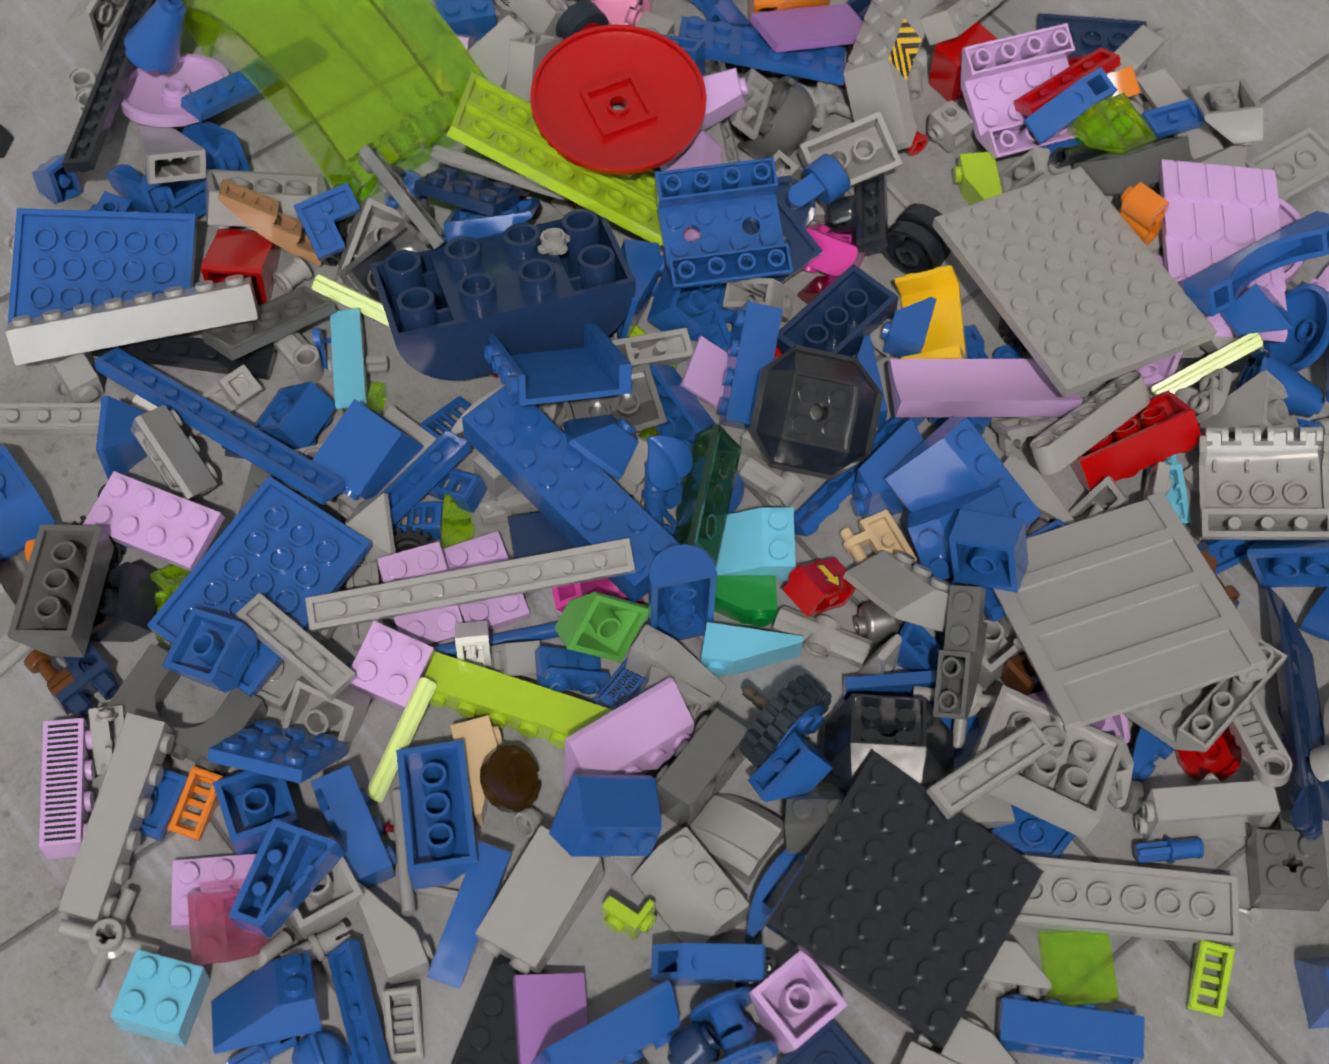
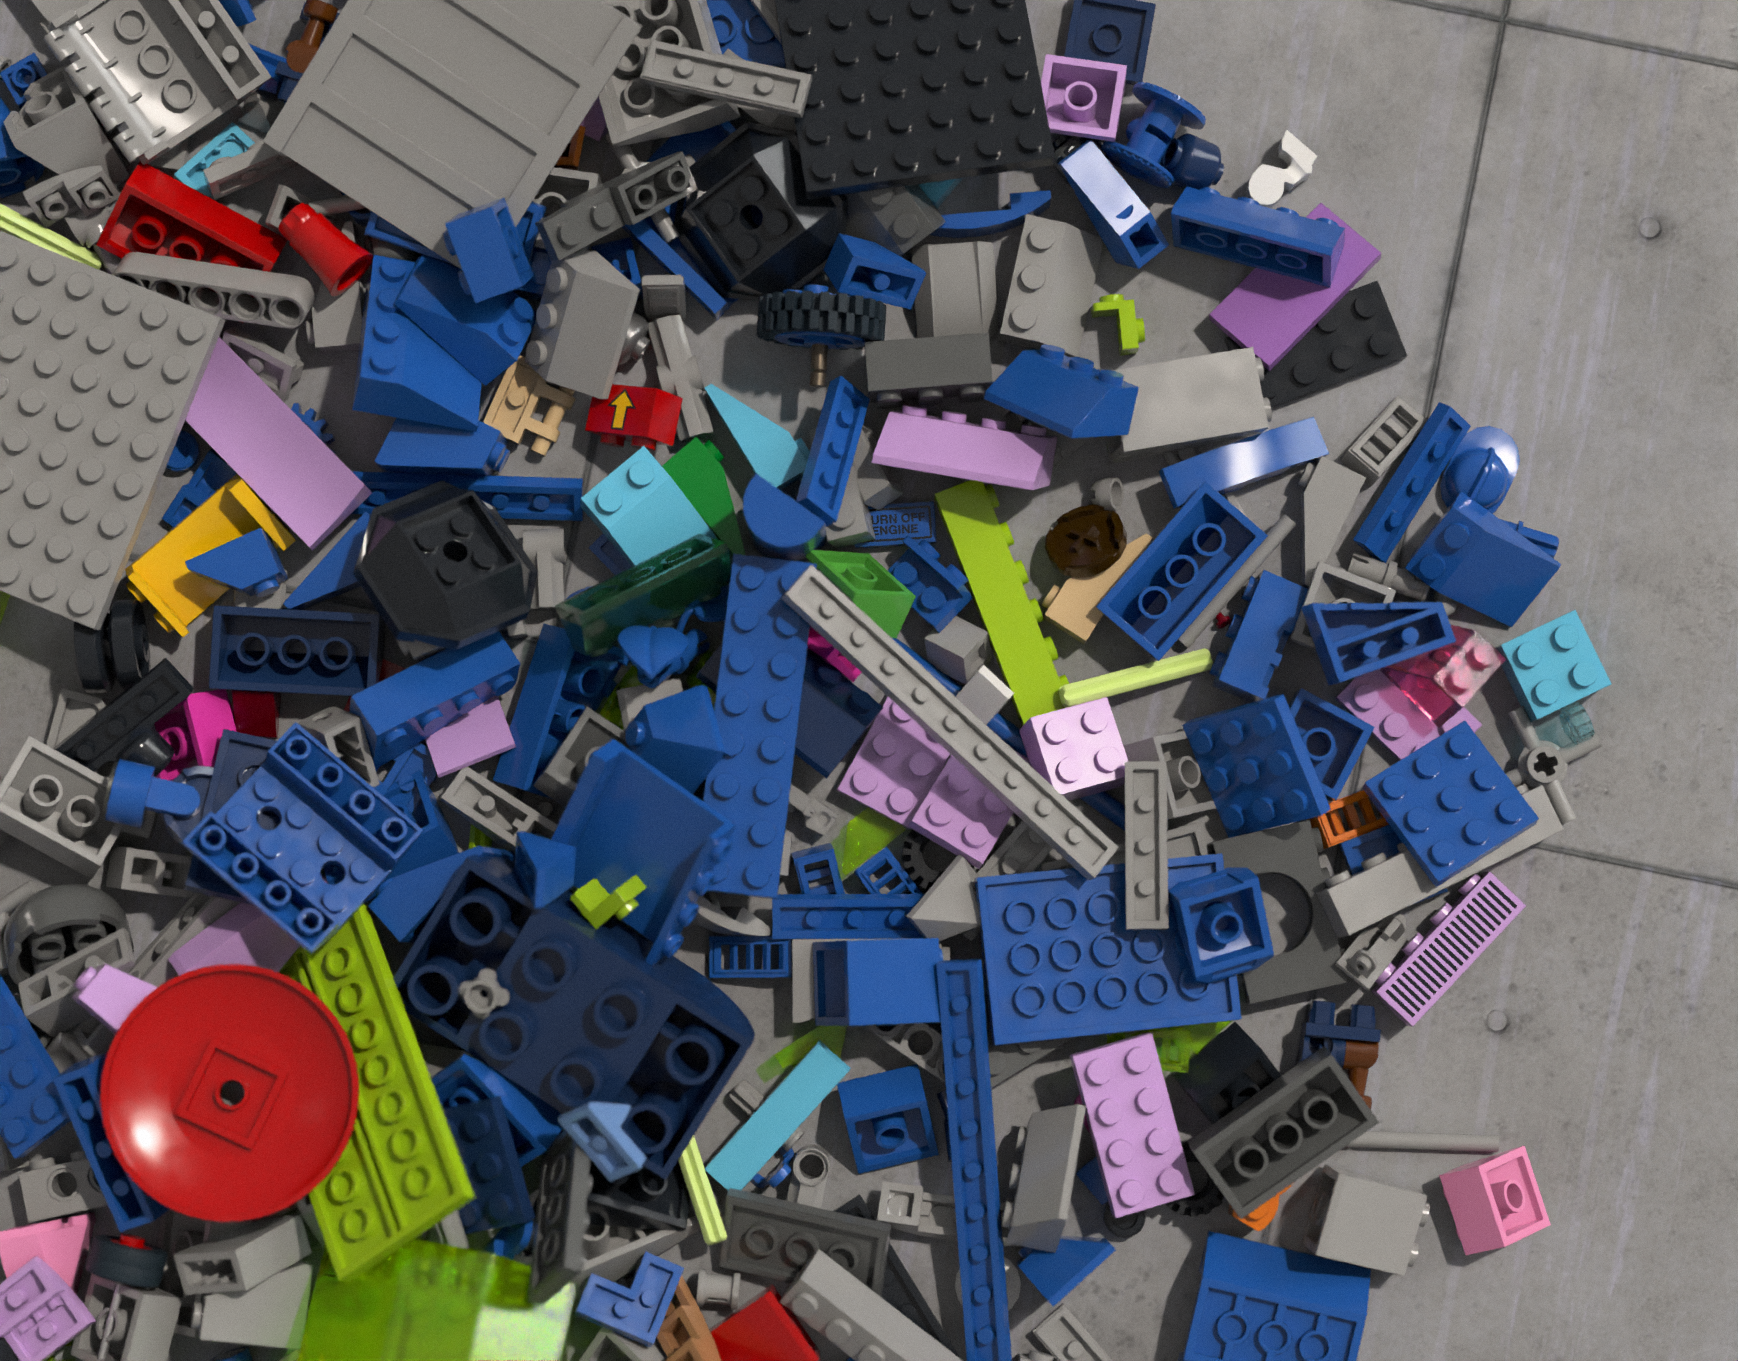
camera: 130 degrees left, 25 degrees up
(109, 977) = (1576, 723): none -> clear light blue tile
(141, 847) = (1450, 803): none -> blue plate
(424, 236) = (600, 1135): none -> medium blue slope
(547, 340) = (599, 906): none -> lime bracket
(591, 316) = (543, 867): none -> blue slope
(696, 654) = (833, 450): none -> blue plate
(1067, 491) = (325, 248): none -> red plant

